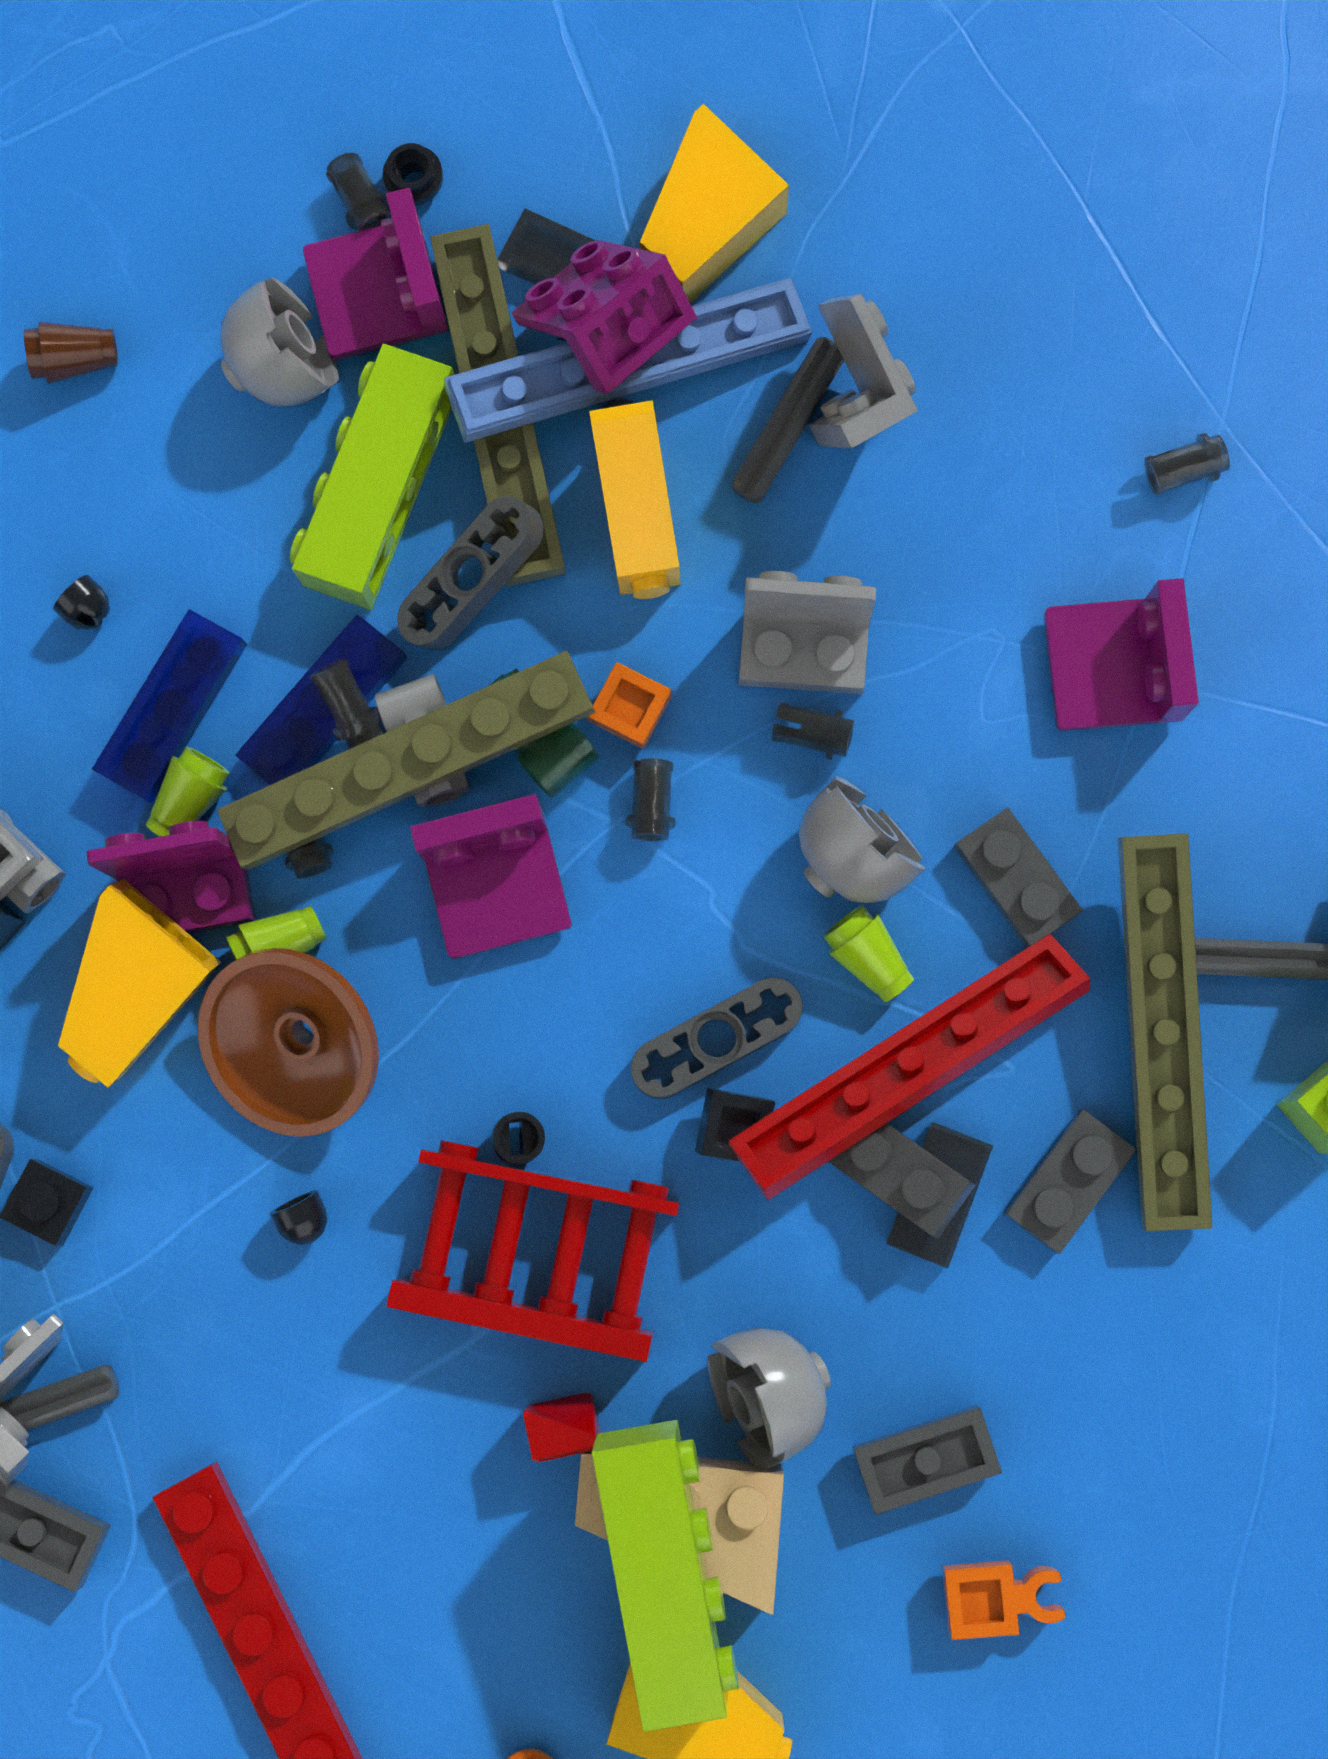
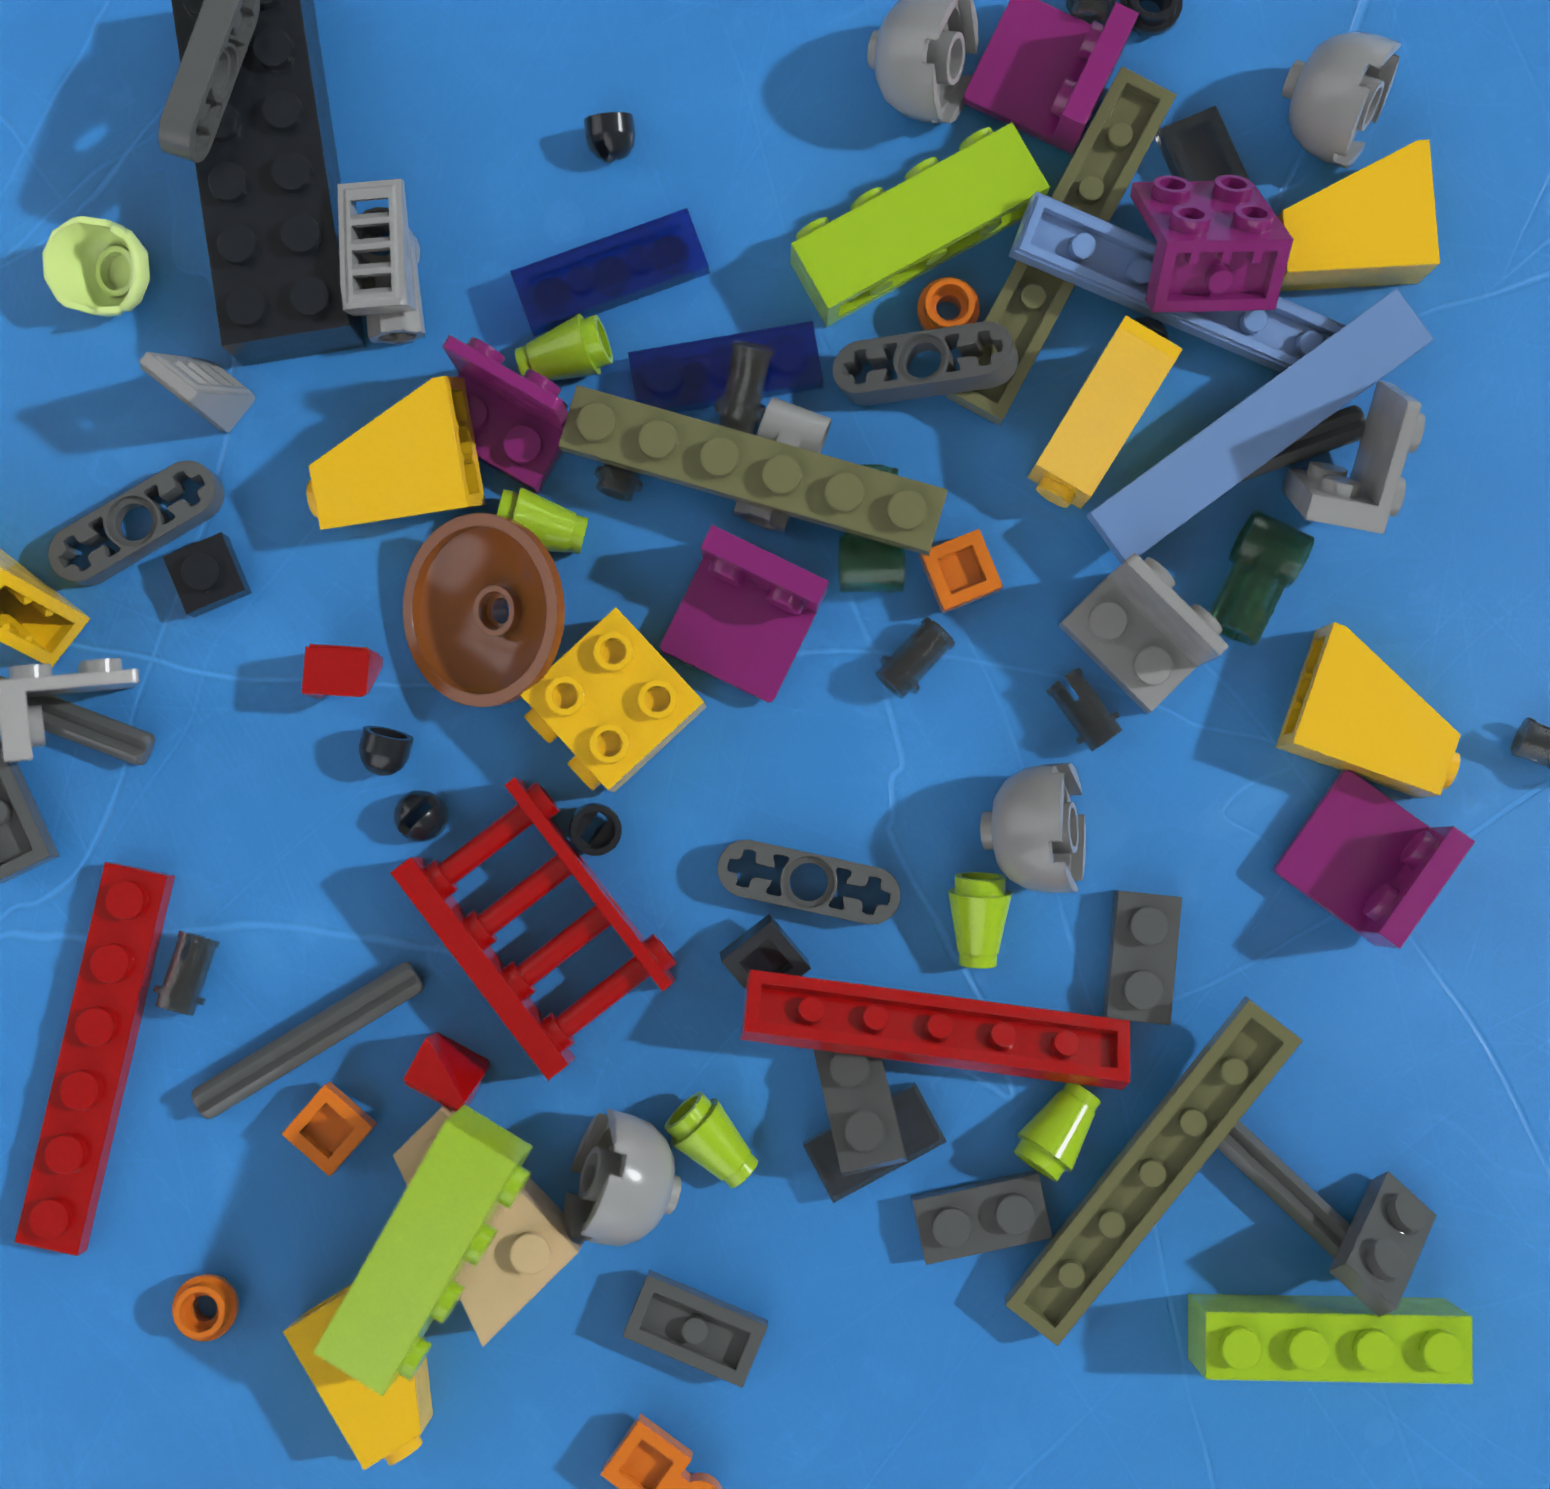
camera: 30 degrees right, 5 degrees up
(214, 1185) = (339, 670): none -> red slope
(291, 1529) = (186, 973): none -> clear smoke pin
(386, 1246) = (429, 825): none -> black hinge
(431, 1500) = (307, 1040): none -> dark grey axle
(442, 505) = (947, 290): none -> orange plate
(448, 1028) = (611, 703): none -> yellow brick
(508, 1553) = (329, 1128): none -> orange plate
(609, 124) = (1340, 93): none -> light grey cylinder
(760, 413) = (1260, 427): none -> medium blue tile
(812, 1301) = (710, 1139): none -> lime cone
(852, 508) = (1264, 561): none -> clear green piece
(1028, 558) = (1367, 719): none -> yellow slope
(1070, 1065) = (1057, 1132): none -> lime cone

